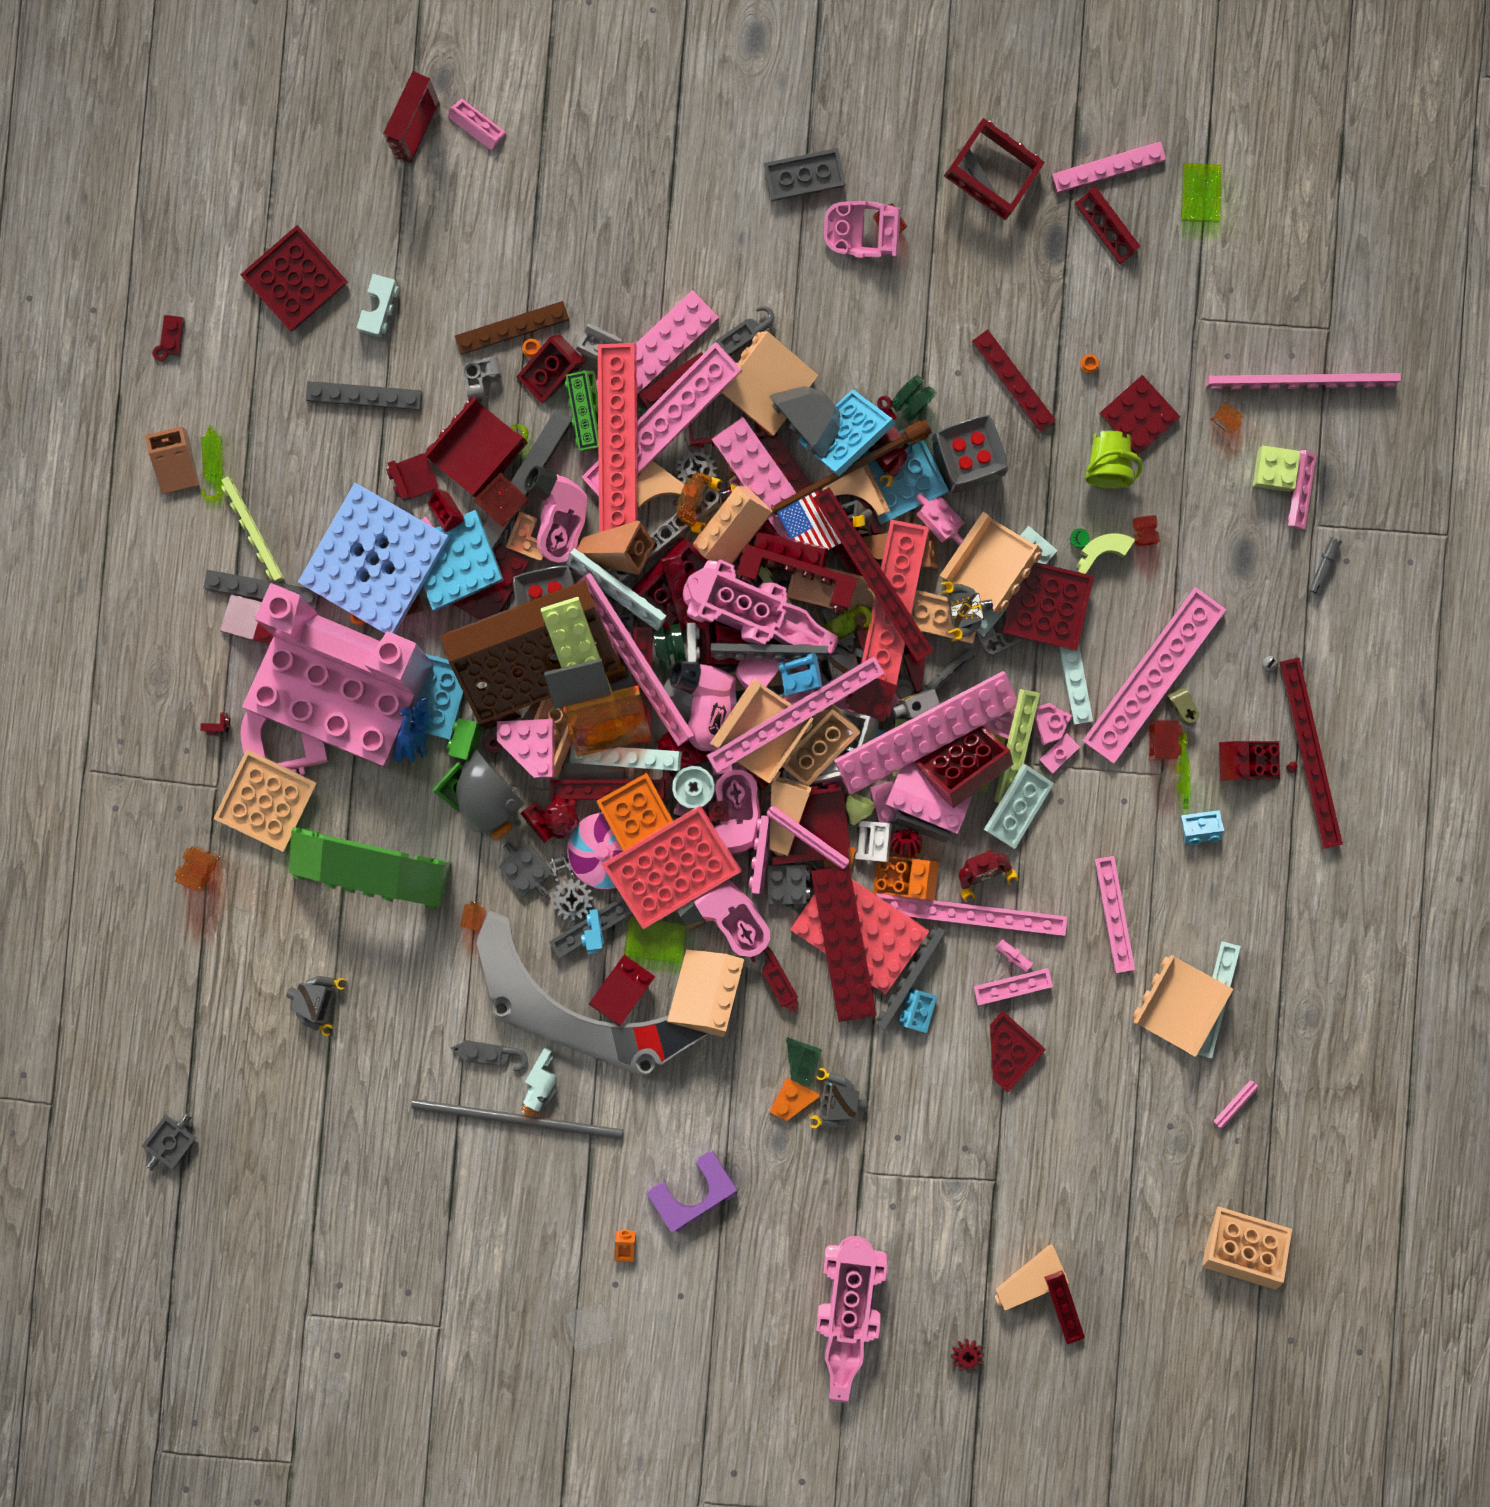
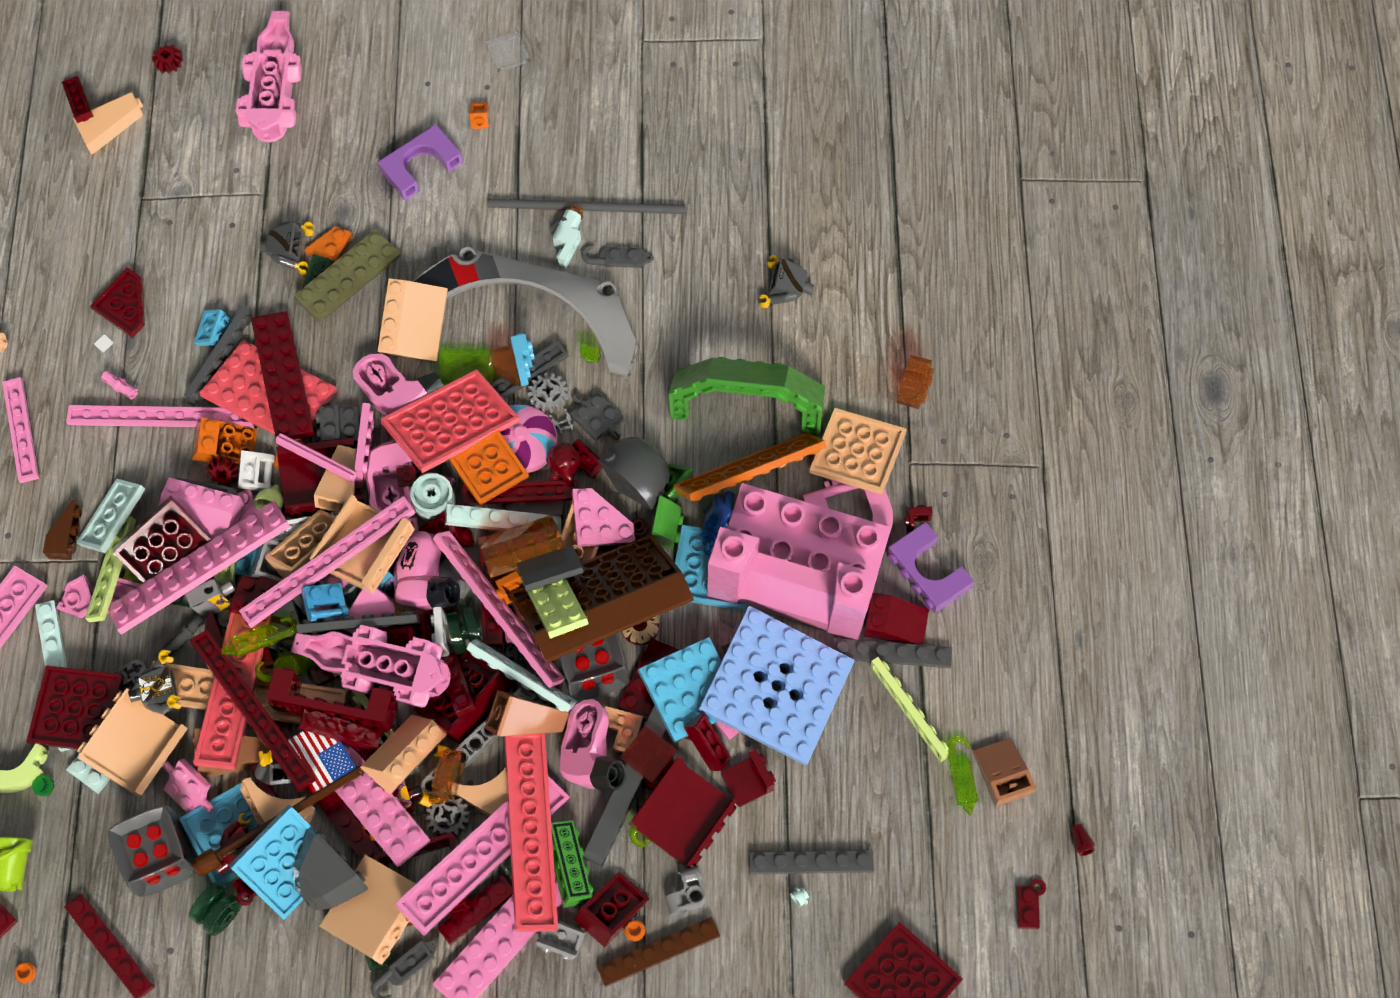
camera: 175 degrees right, 20 degrees down
(111, 389) = (1082, 841): none -> dark red cone
(169, 1141) = (906, 157): dark grey plate -> none
(234, 684) = (934, 592): none -> medium lavender arch
(374, 788) = (749, 466): none -> orange plate
(375, 322) = (809, 940): light aqua arch -> none
(377, 363) = (799, 896): none -> light aqua plate
(472, 916) = (643, 368): clear orange brick -> none
(527, 939) = (590, 353): none -> clear neon green plate
(613, 931) = (504, 364): none -> clear orange slope
(620, 680) = (508, 584): none -> orange bracket
(621, 990) = (493, 313): dark red slope -> none
(774, 1057) = (347, 276): none -> olive plate
(778, 981) = (344, 339): dark red plate -> none
(866, 649) = (258, 638): none -> clear neon green plate
(982, 868) = (147, 454): dark red torso -> none
(1012, 986) = (121, 357): bright pink plate -> none
(1032, 1009) = (103, 343): none -> white sticker
(1059, 753) = (72, 569): bright pink plate -> none
(1069, 787) = (61, 537): none -> reddish brown slope

